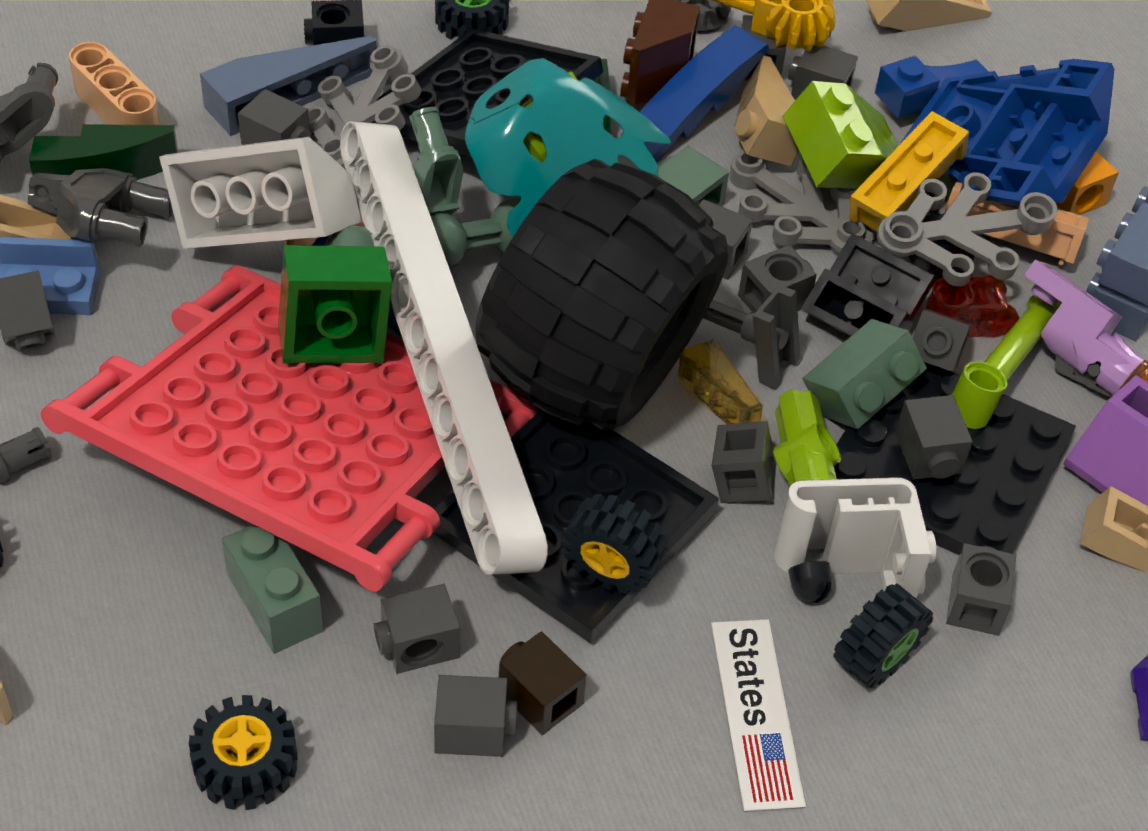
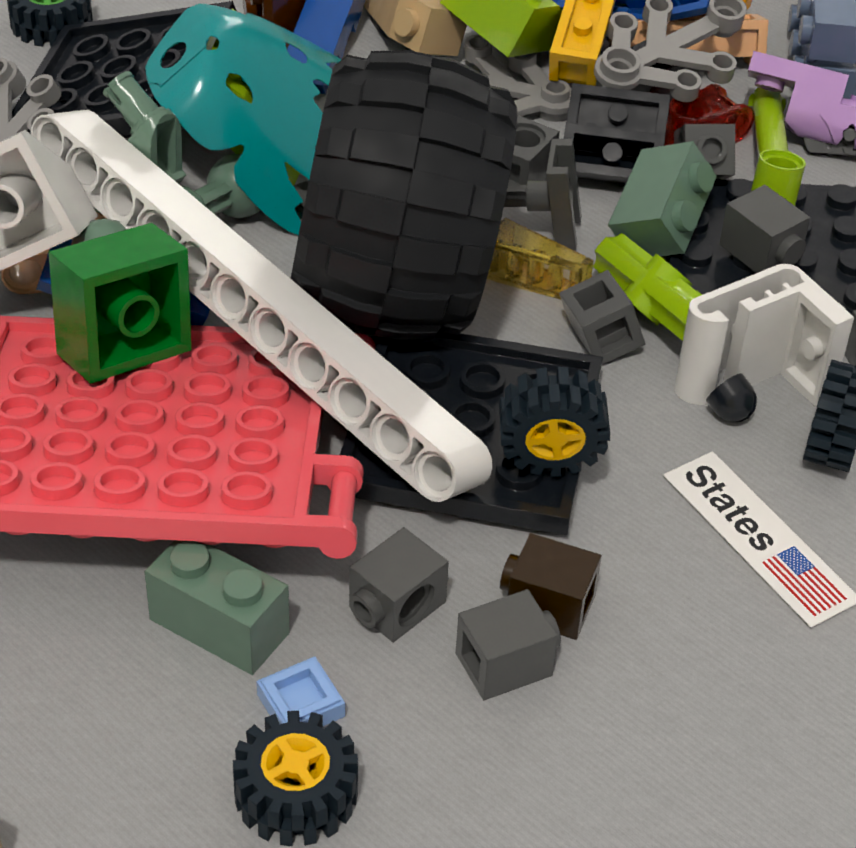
camera: 25 degrees left, 5 degrees down
(295, 687) = (302, 689): none -> light blue tile

